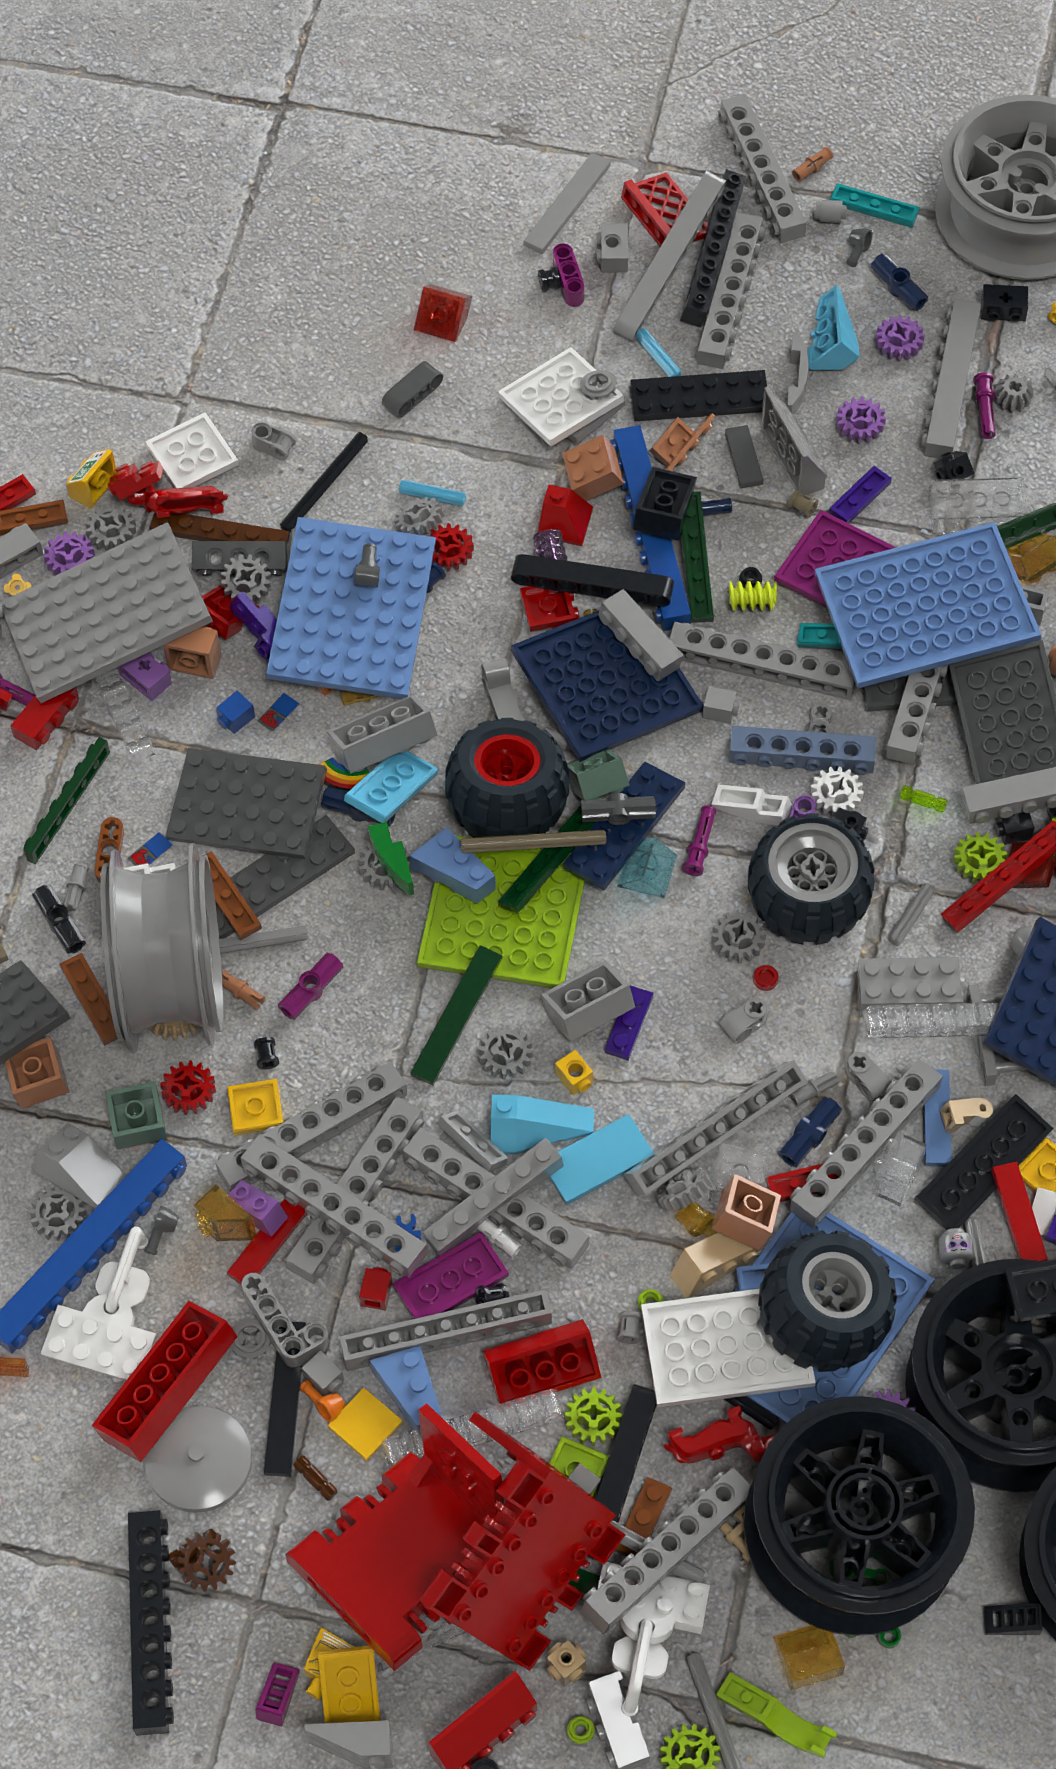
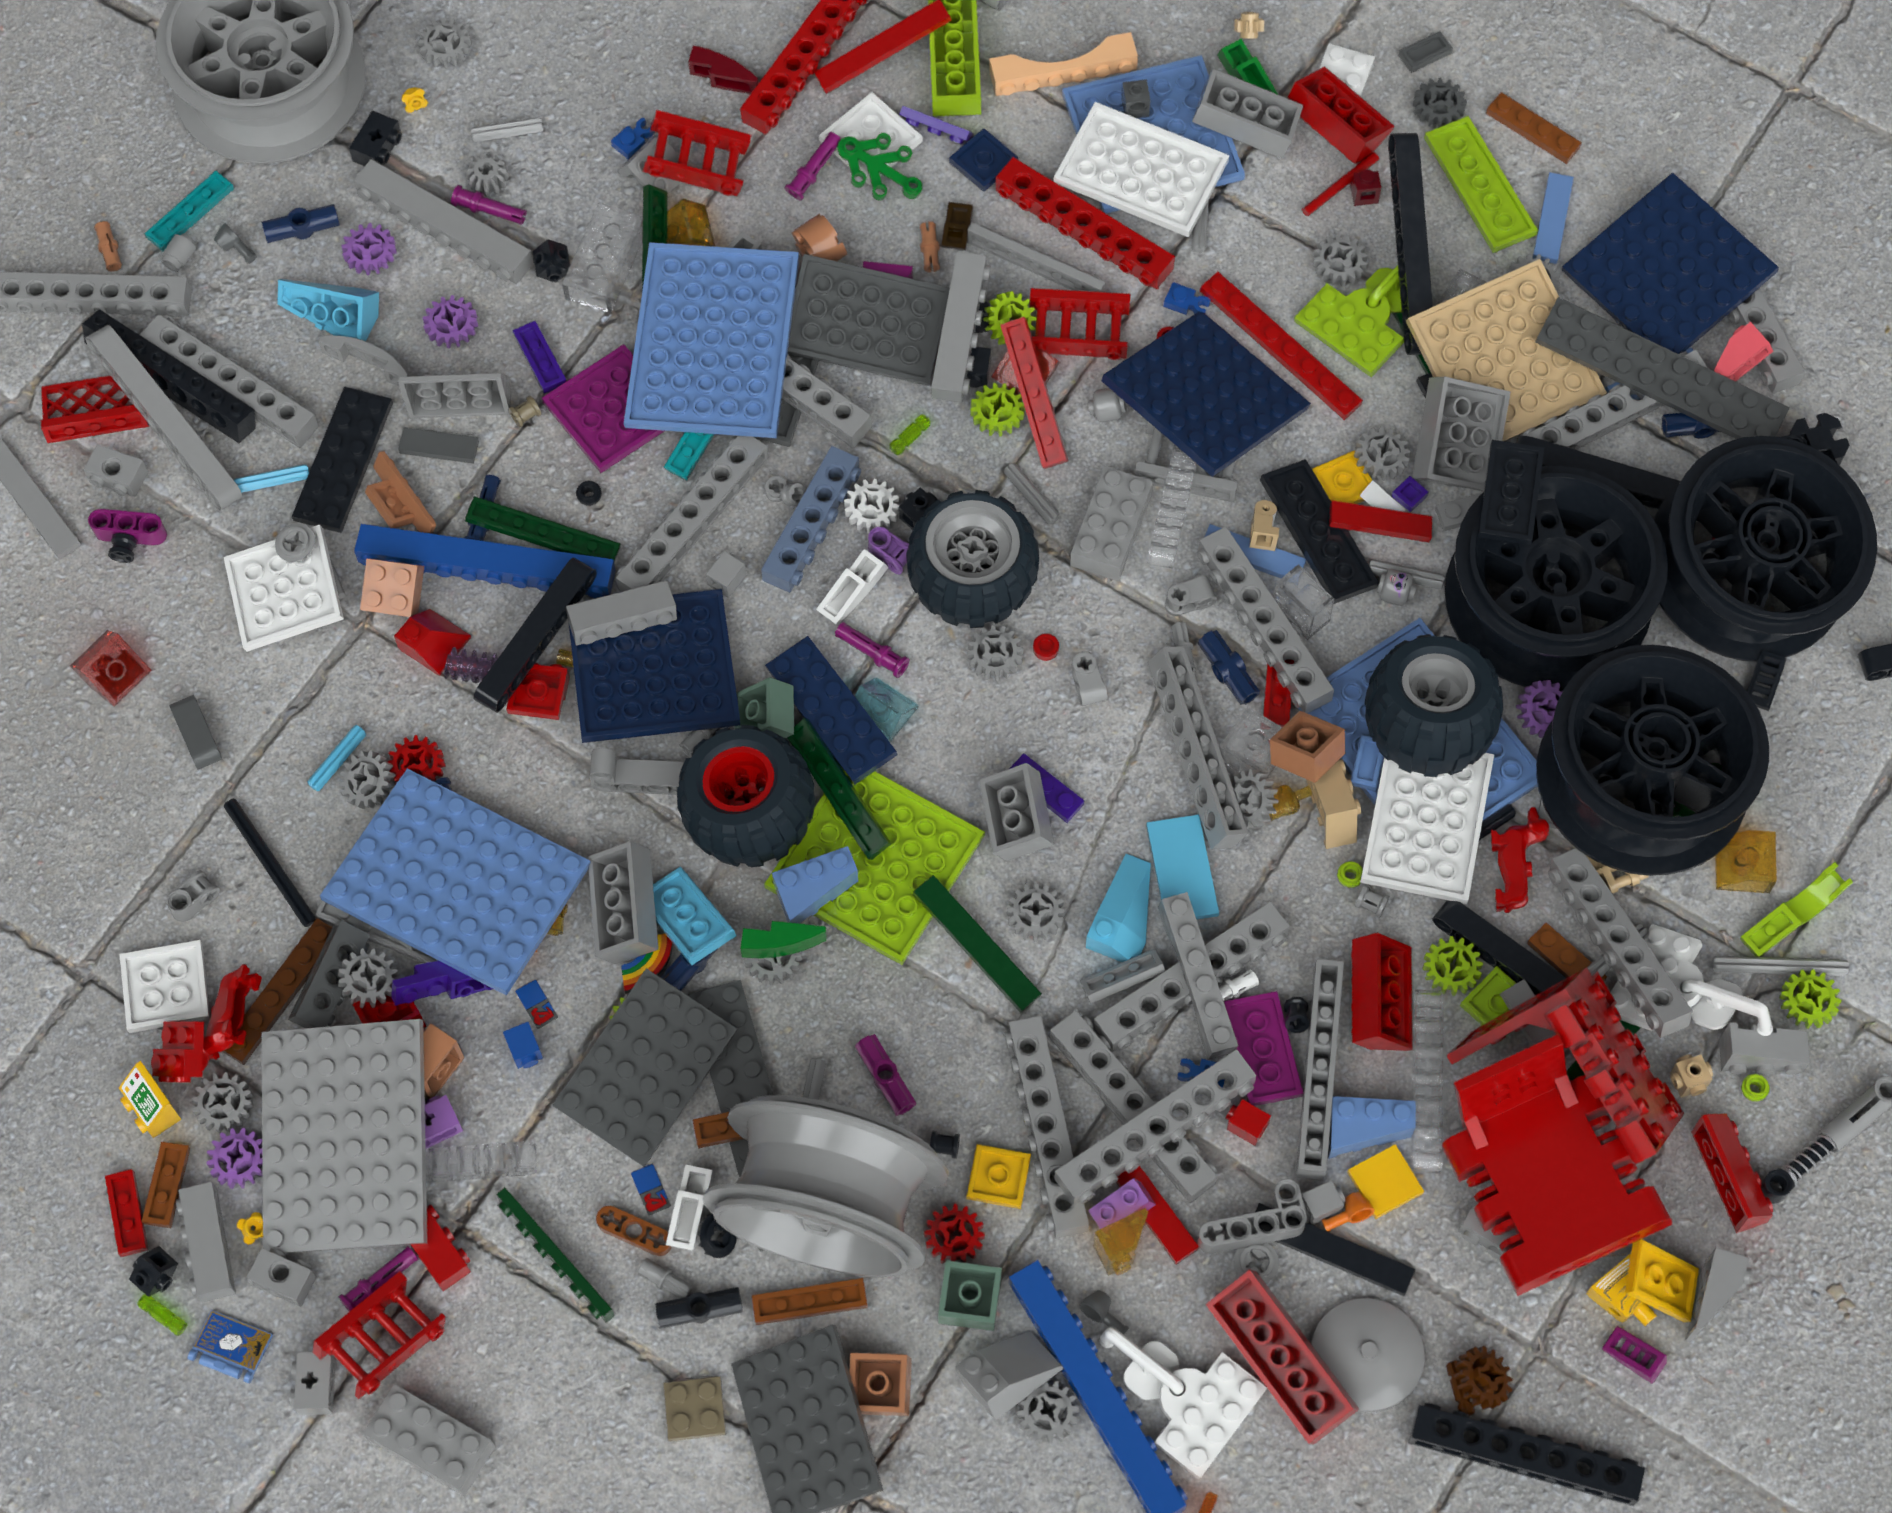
camera: 70 degrees left, 5 degrees up
(315, 1478) = (1426, 1247): reddish brown axle -> none
(367, 571) = (429, 846): dark grey pin -> none
(533, 841) = (825, 796): dark tan axle -> none
(574, 1063) = (1080, 866): yellow brick -> none
(618, 809) = (821, 703): dark grey piece -> none
(664, 503) = (477, 531): black slope -> none
(752, 595) = (613, 497): neon yellow piece -> none

